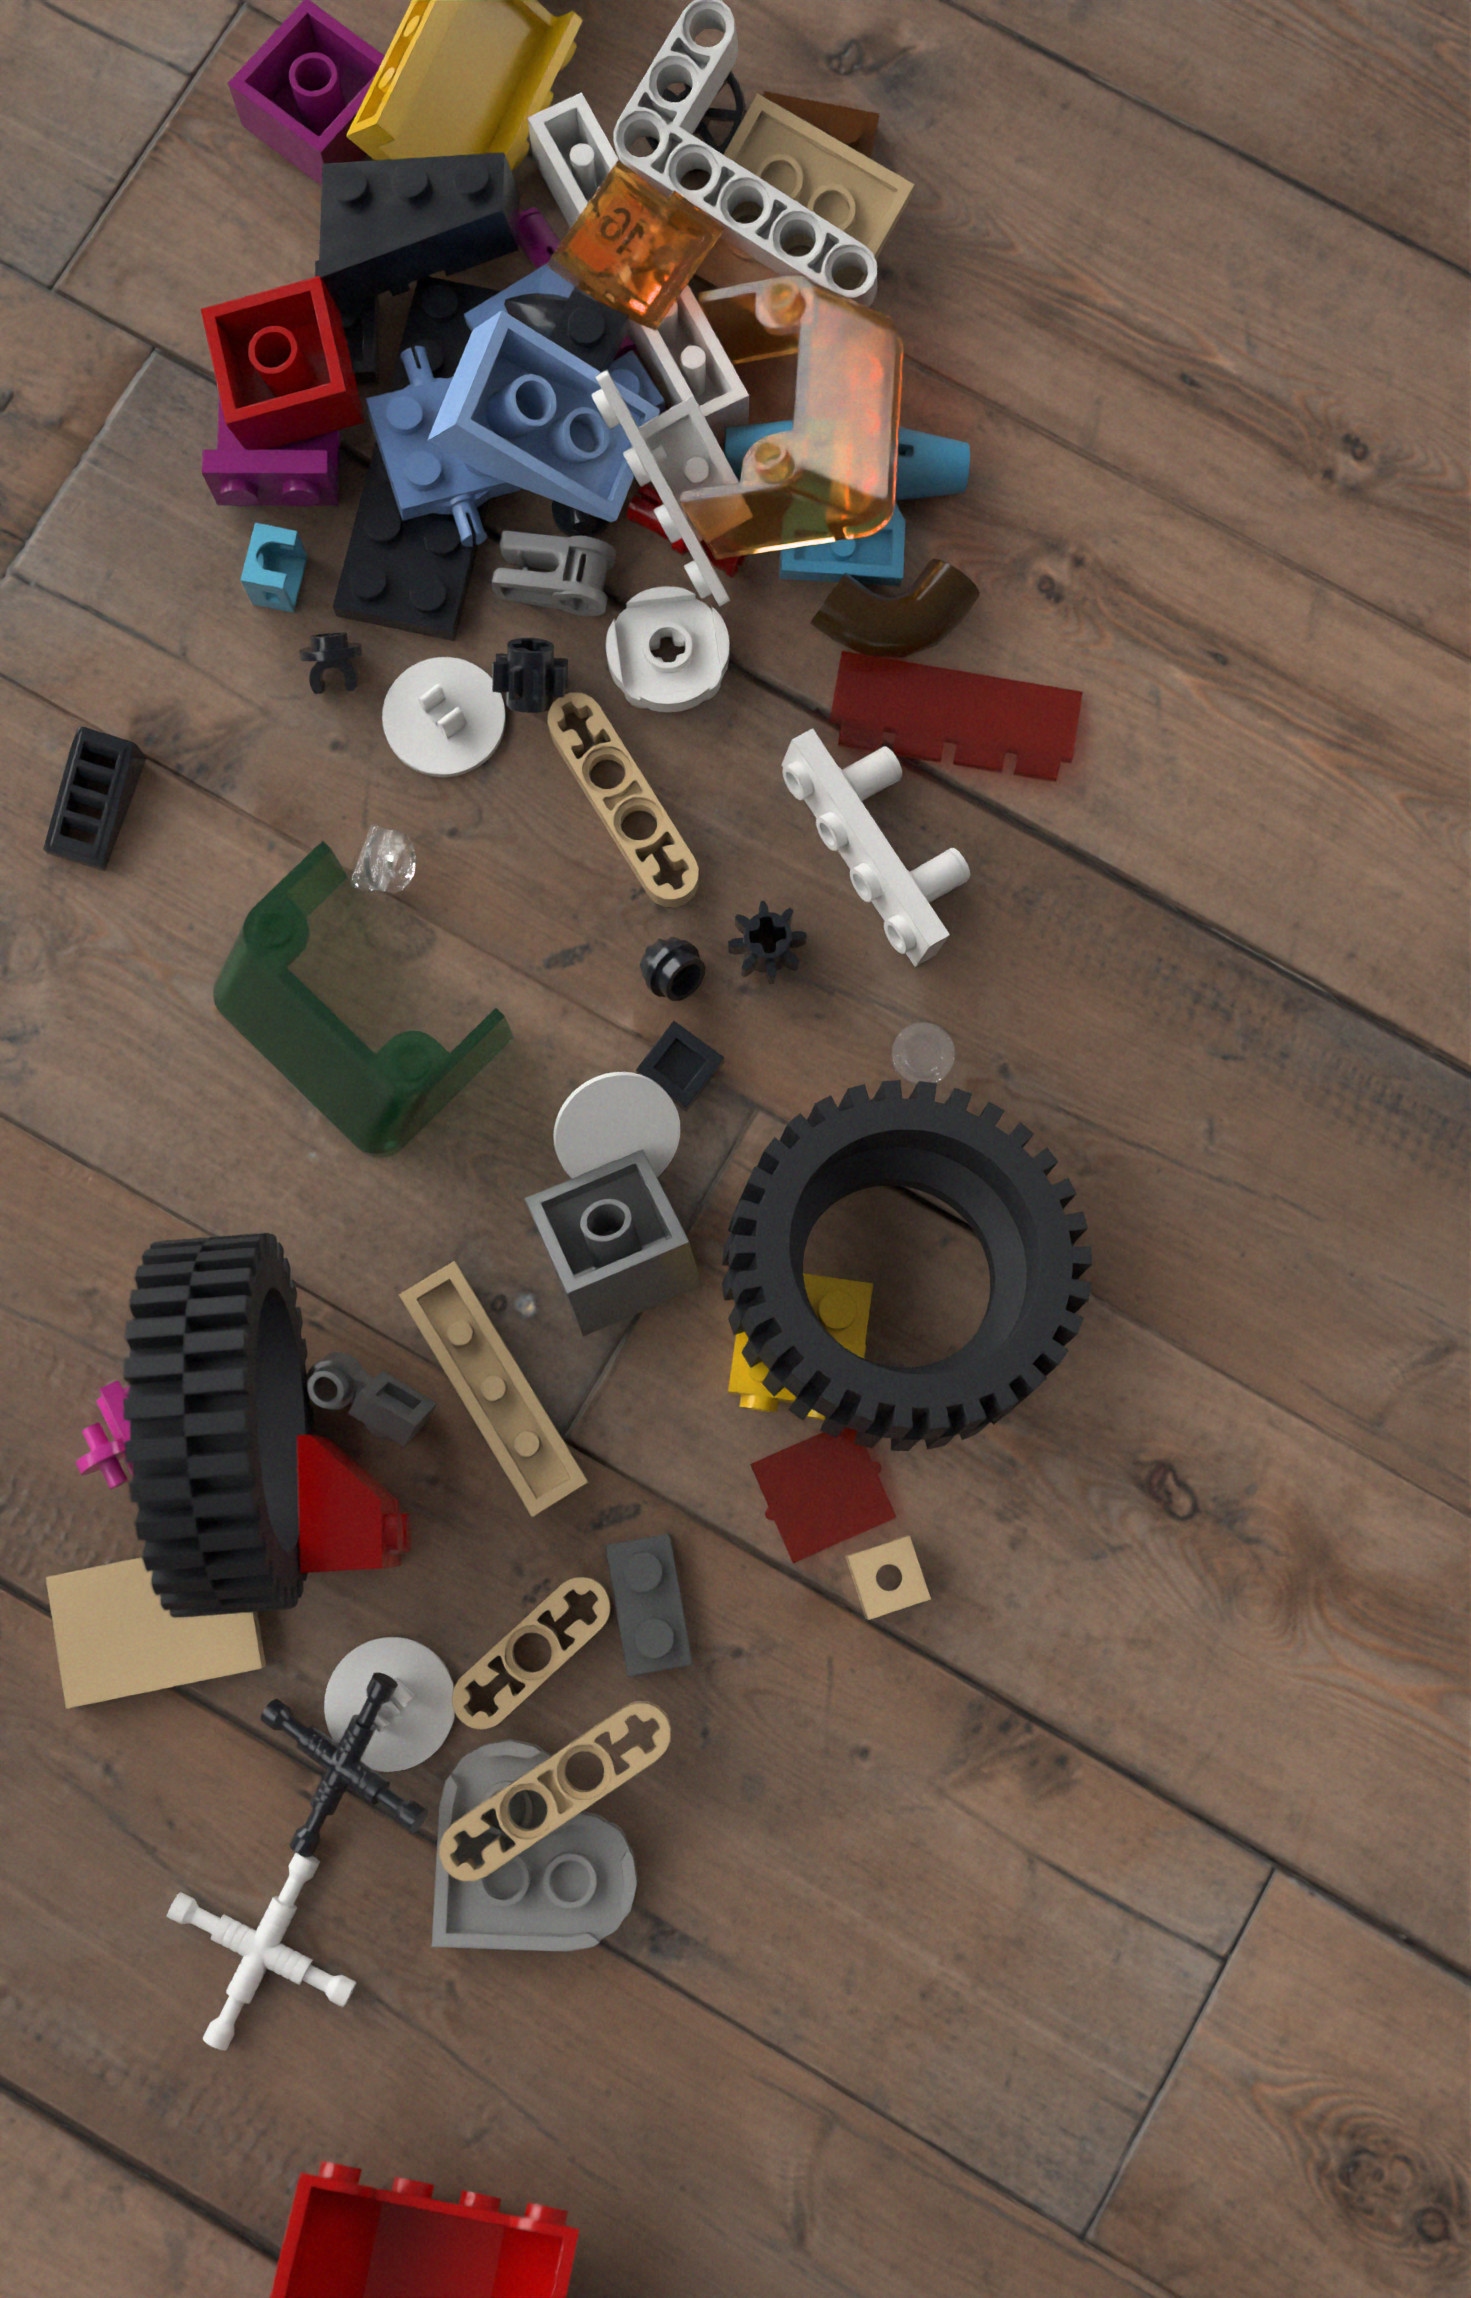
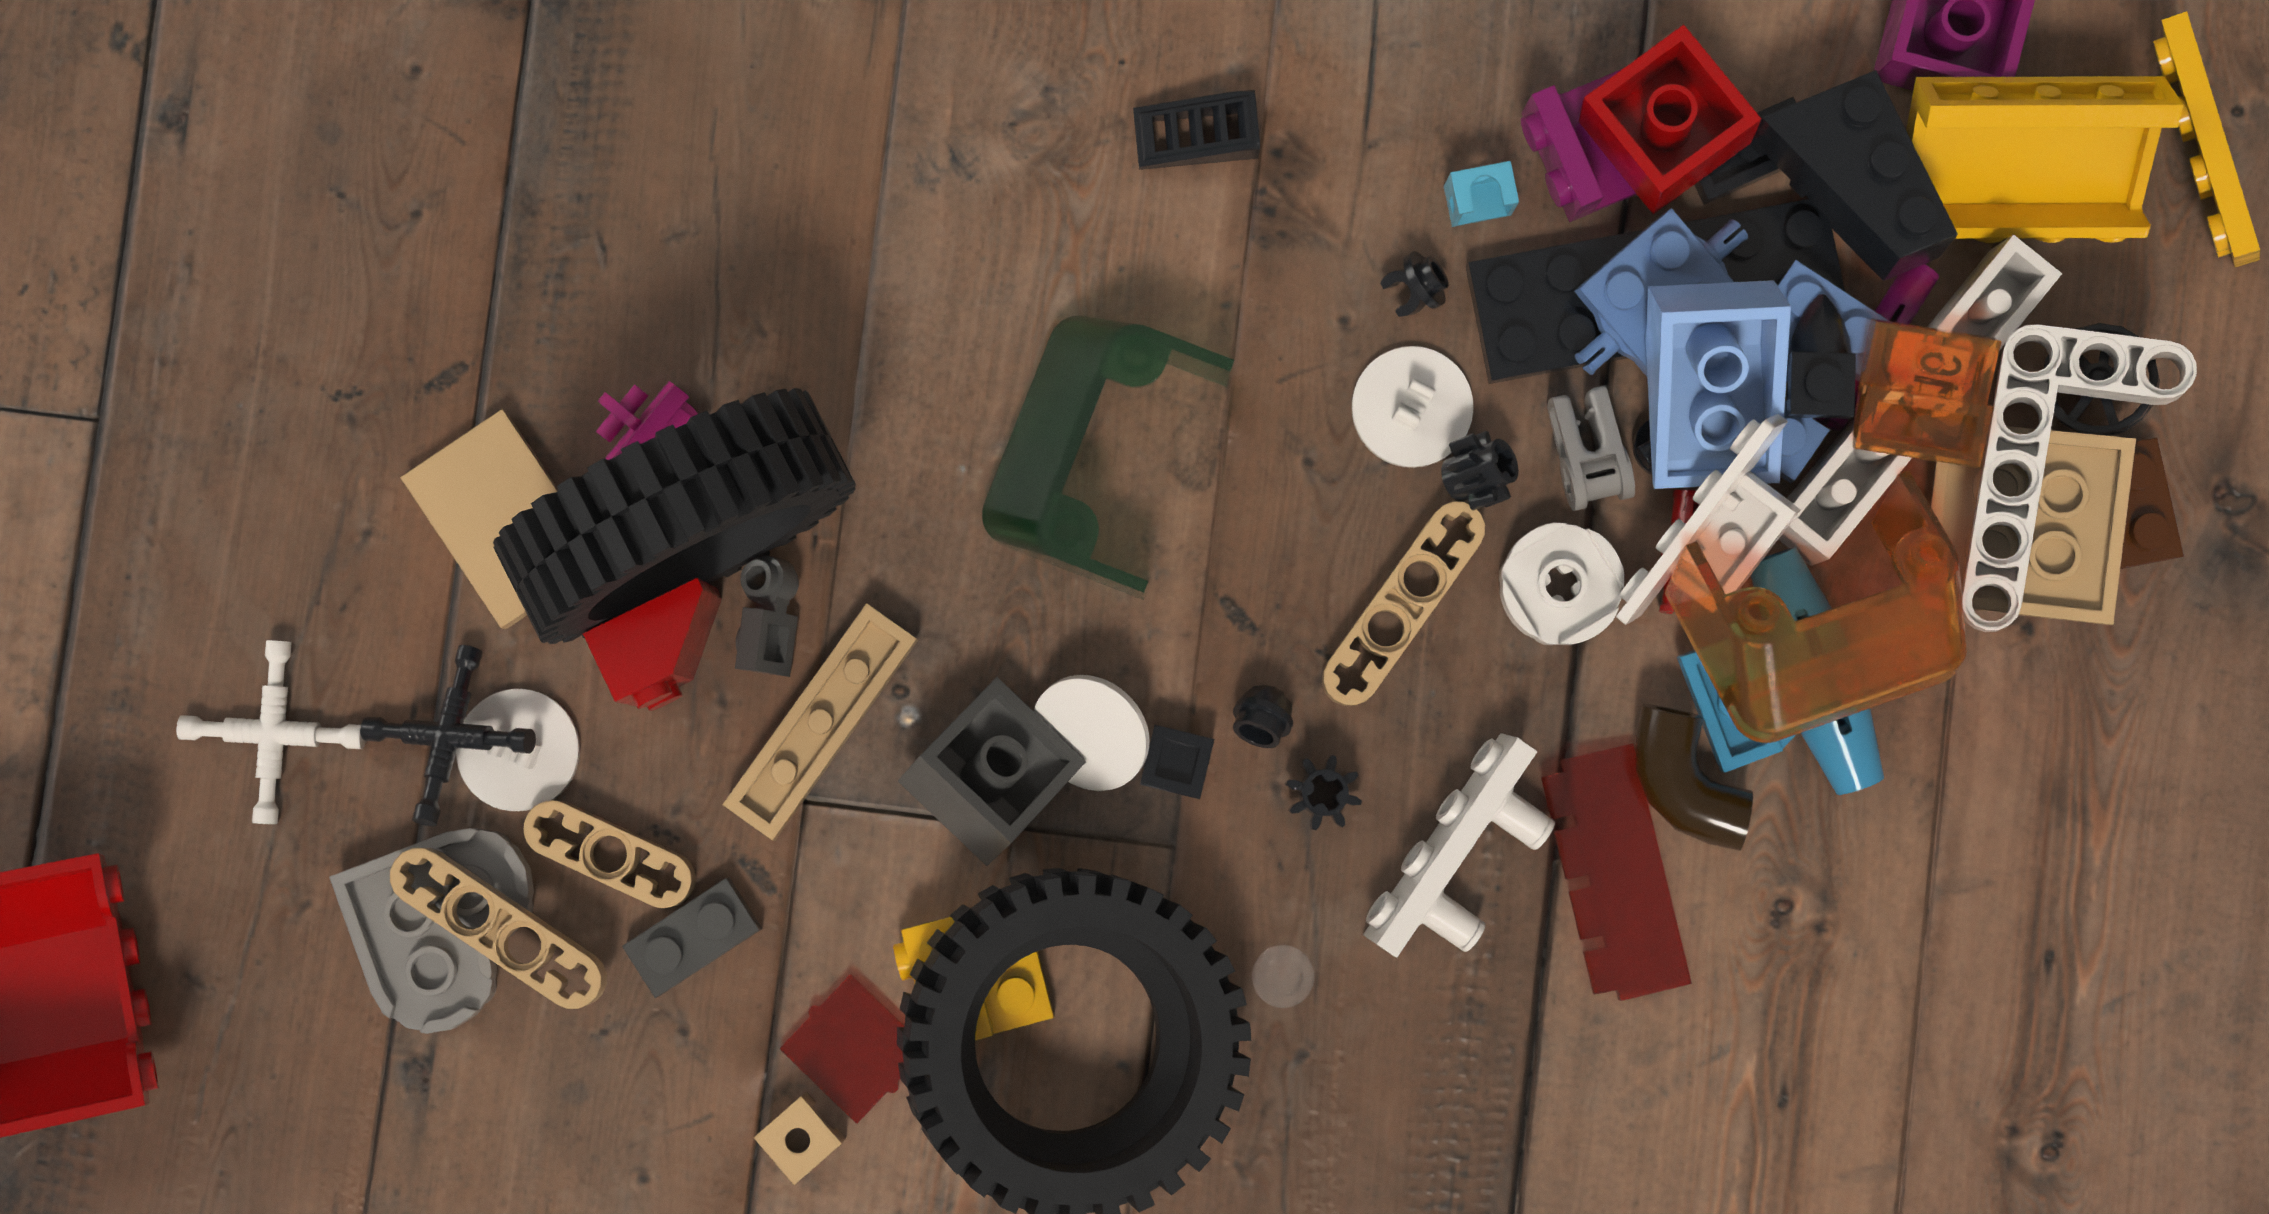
camera: 70 degrees right, 5 degrees up
(384, 861) = (1252, 415): clear plate -> none

